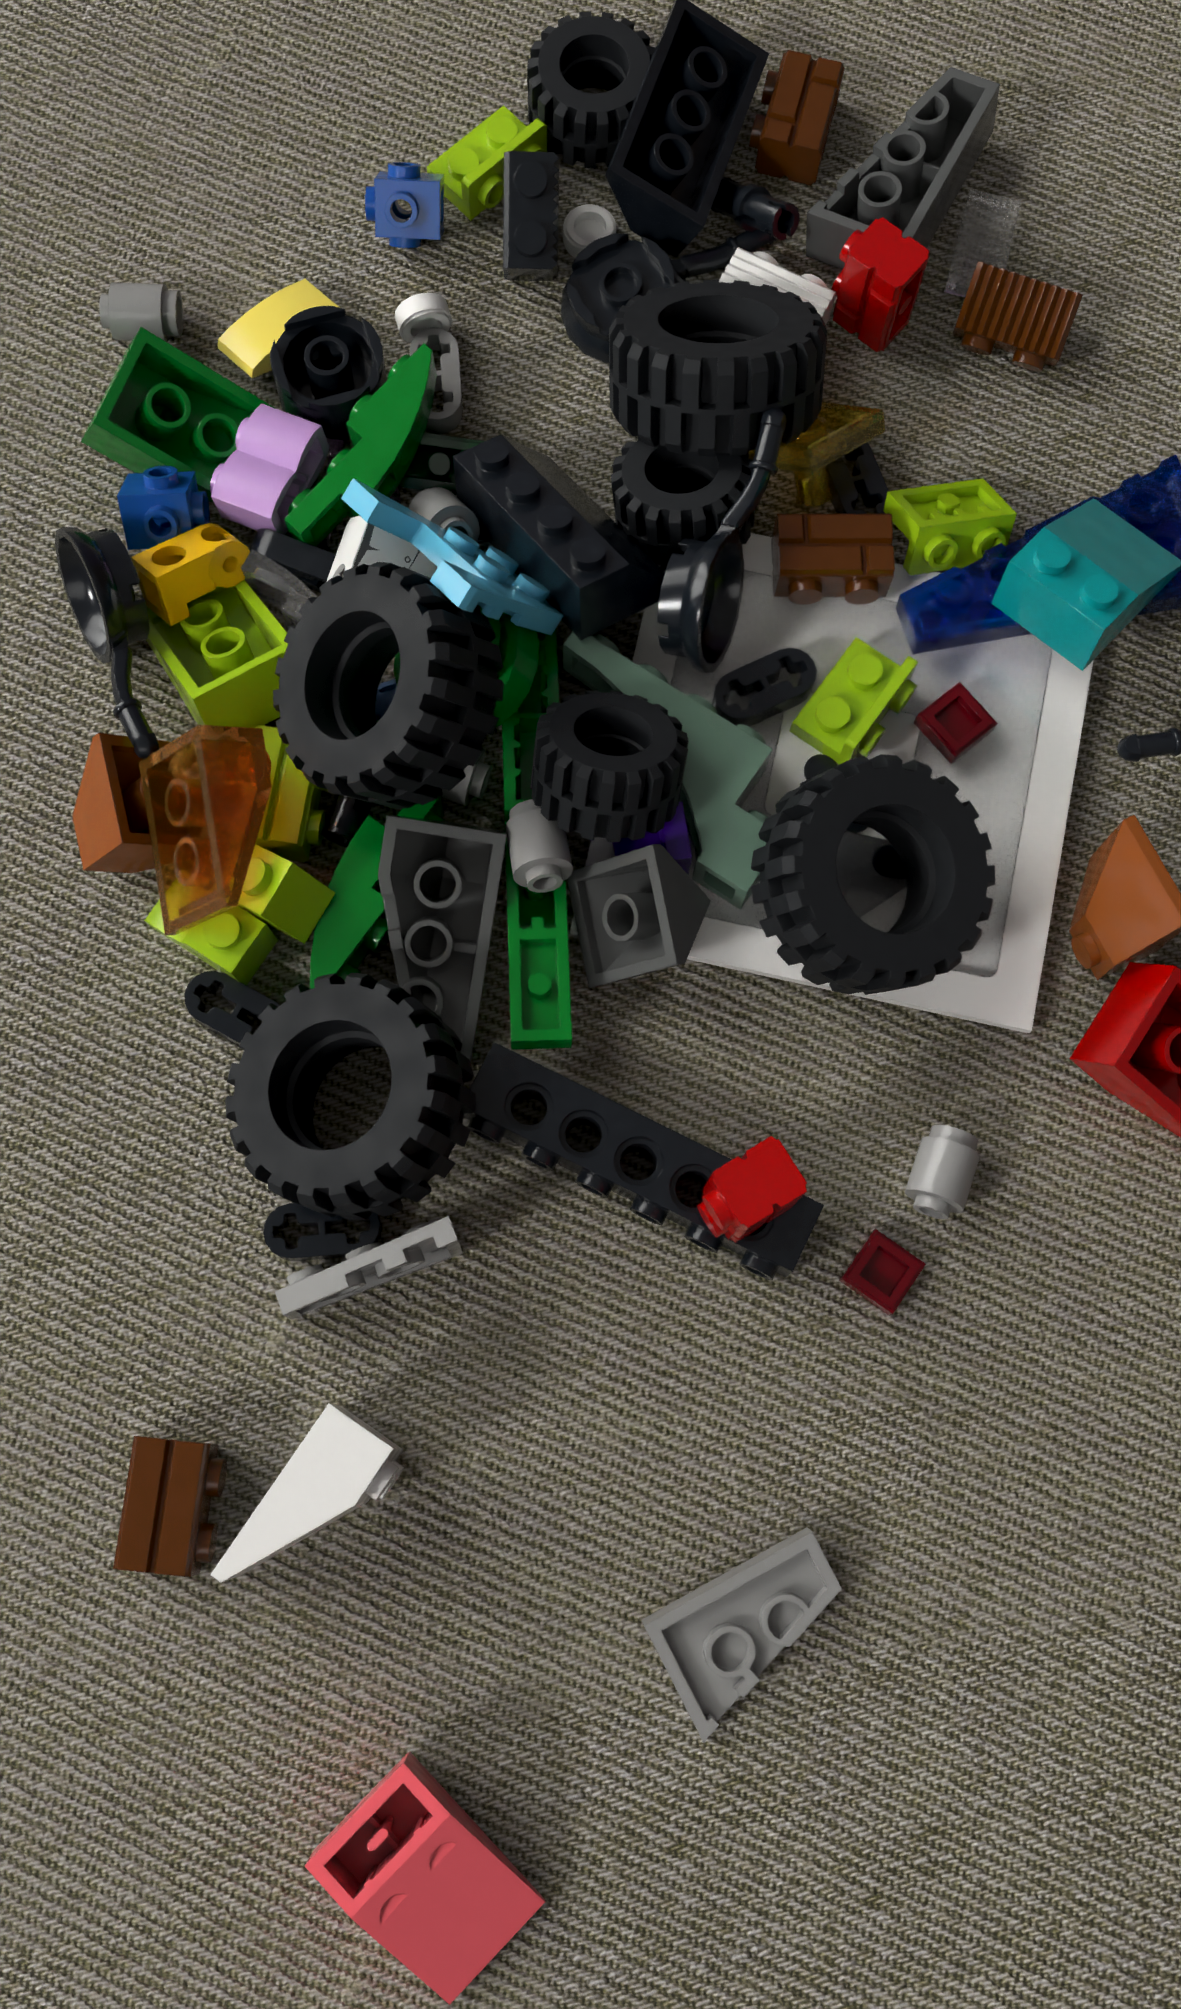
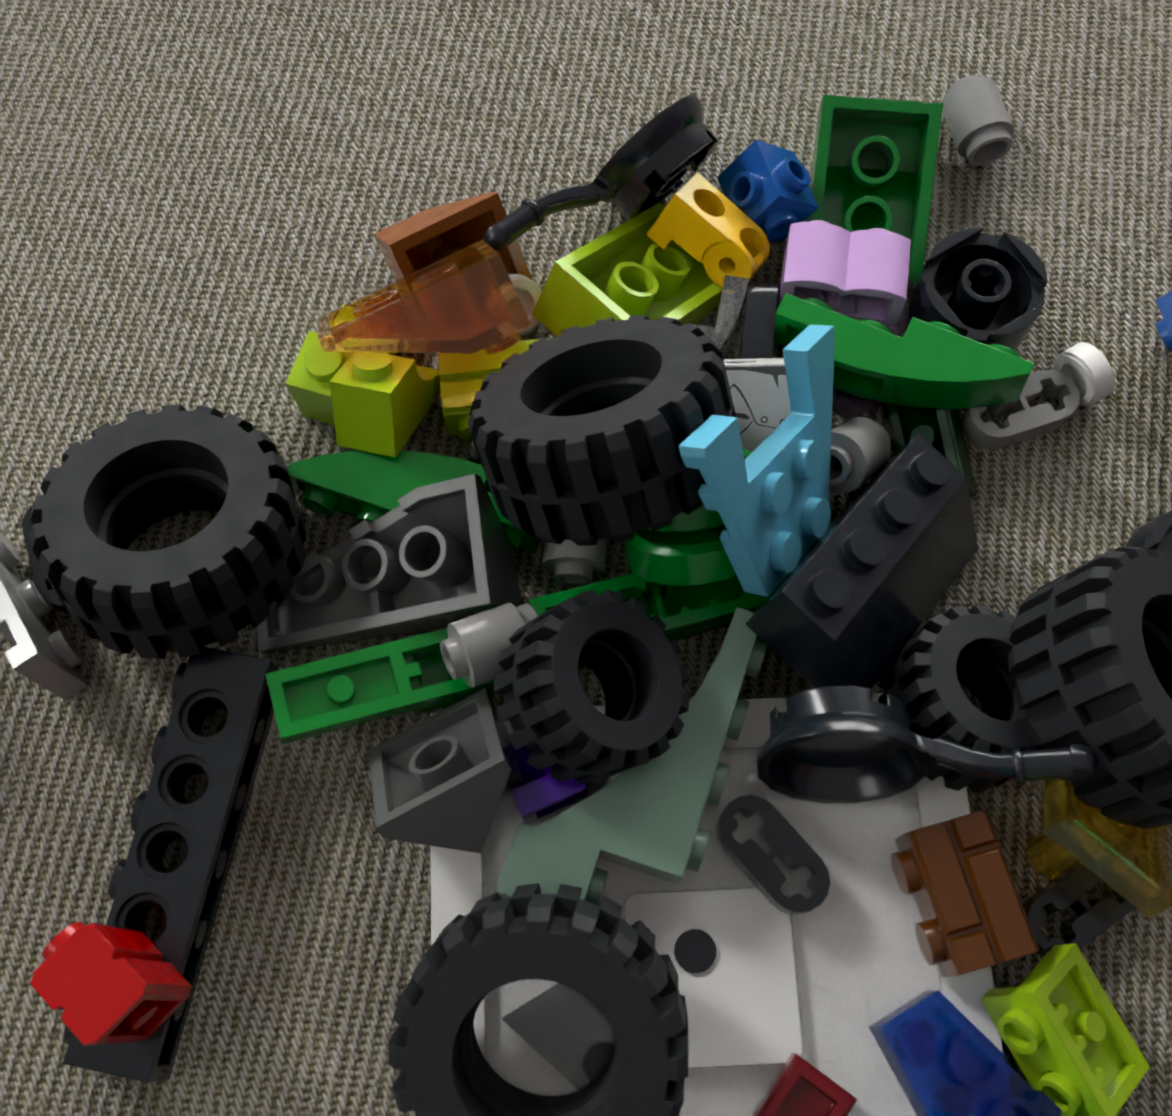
camera: 80 degrees right, 5 degrees down
(236, 994) = (257, 405): black beam -> none
(253, 334) = (999, 217): light yellow slope -> none
(852, 702) = (789, 968): lime bracket -> none

